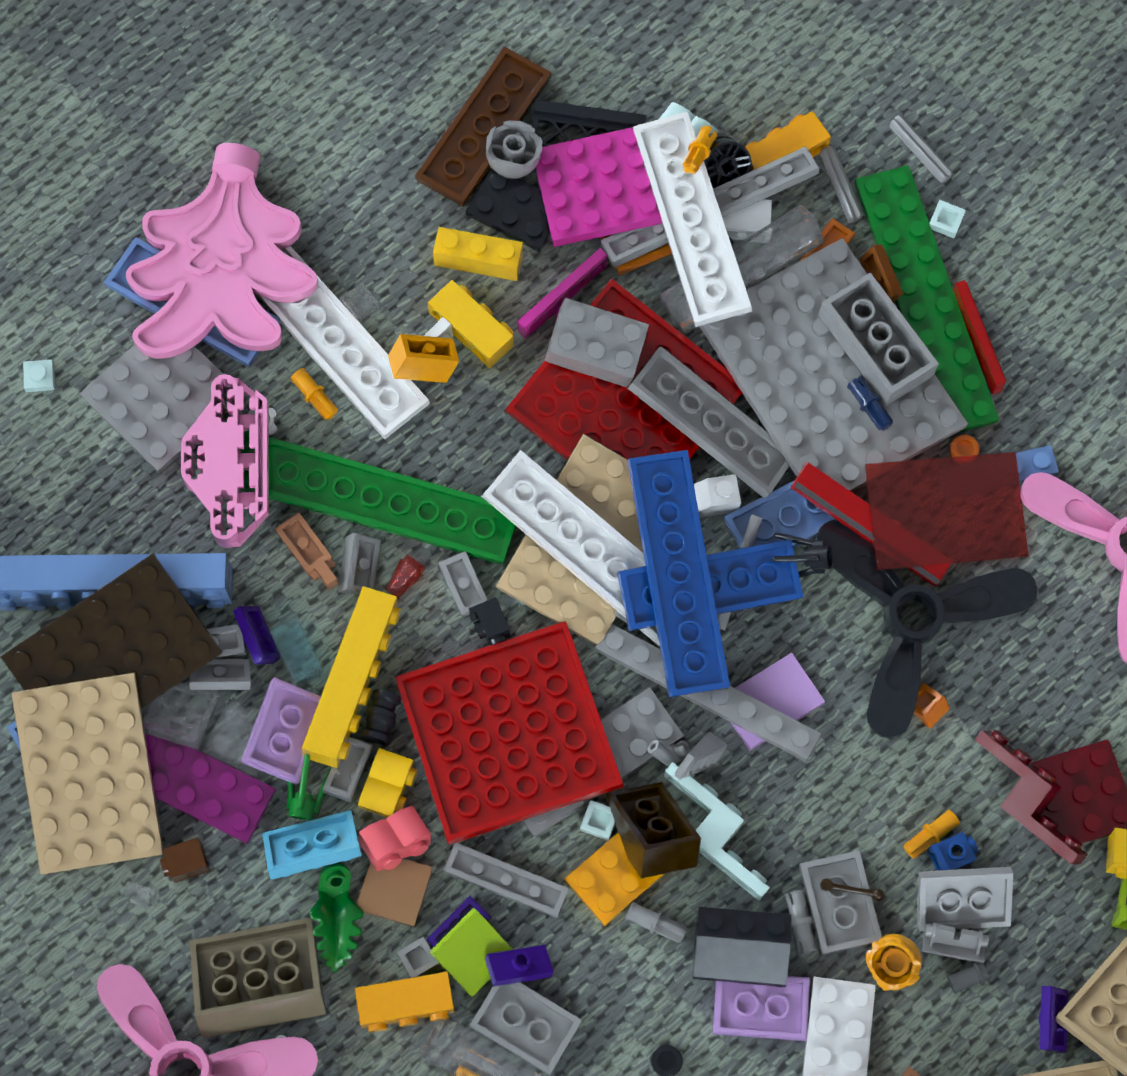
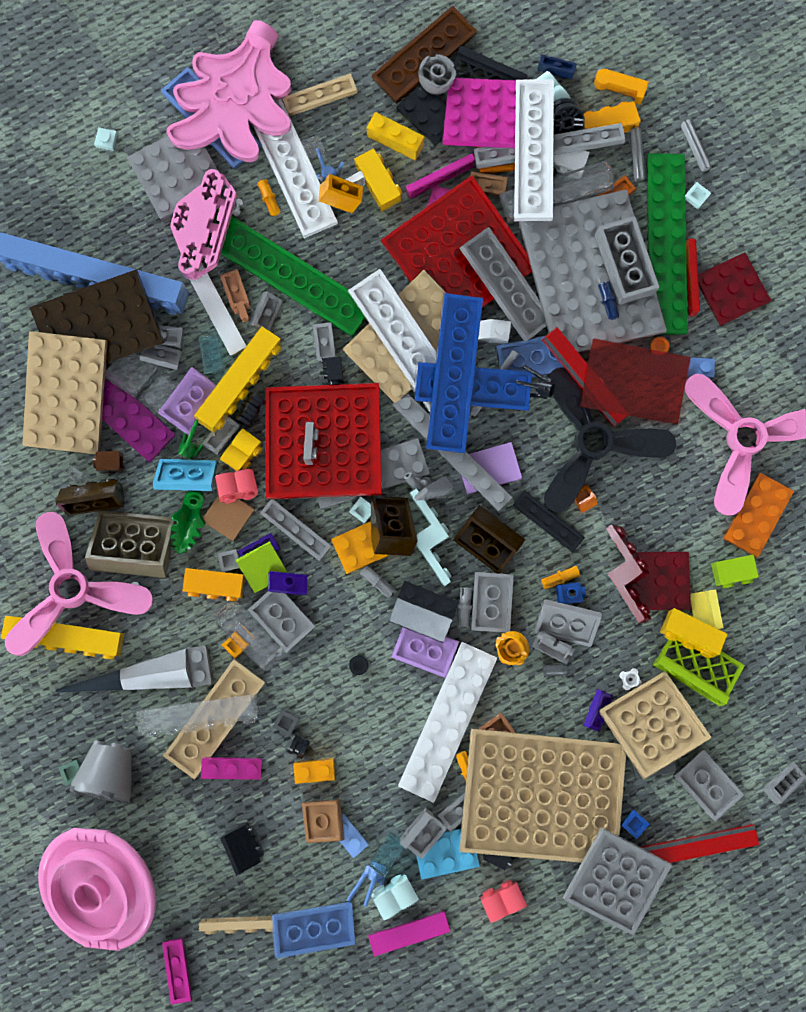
camera: 20 degrees right, 10 degrees up
(174, 922) = (91, 497): none -> dark brown slope
(256, 635) = (190, 337): dark purple plate -> none
(287, 586) = (218, 313): none -> white tile
(346, 224) = (319, 95): none -> tan plate
(392, 331) = (326, 170): none -> medium blue plant
(405, 576) = (291, 326): clear red cone -> none
(496, 752) = (310, 450): none -> light grey plate
(596, 342) = (449, 213): light grey brick -> none
(642, 284) = (491, 184): none -> medium nougat plate
(684, 92) = (557, 67): none -> dark blue plate
(699, 150) = (552, 106): light orange axle -> none
(785, 91) = (621, 84): none -> light orange leg
(805, 808) = (489, 539): none -> dark brown slope
(826, 885) = (515, 604): dark brown hinge -> none
(879, 265) = (643, 215): dark orange plate -> none
(885, 755) = (548, 521): none -> black tile
(1042, 338) = (732, 289): none -> dark red plate
(1087, 948) = (633, 673): none -> white plate

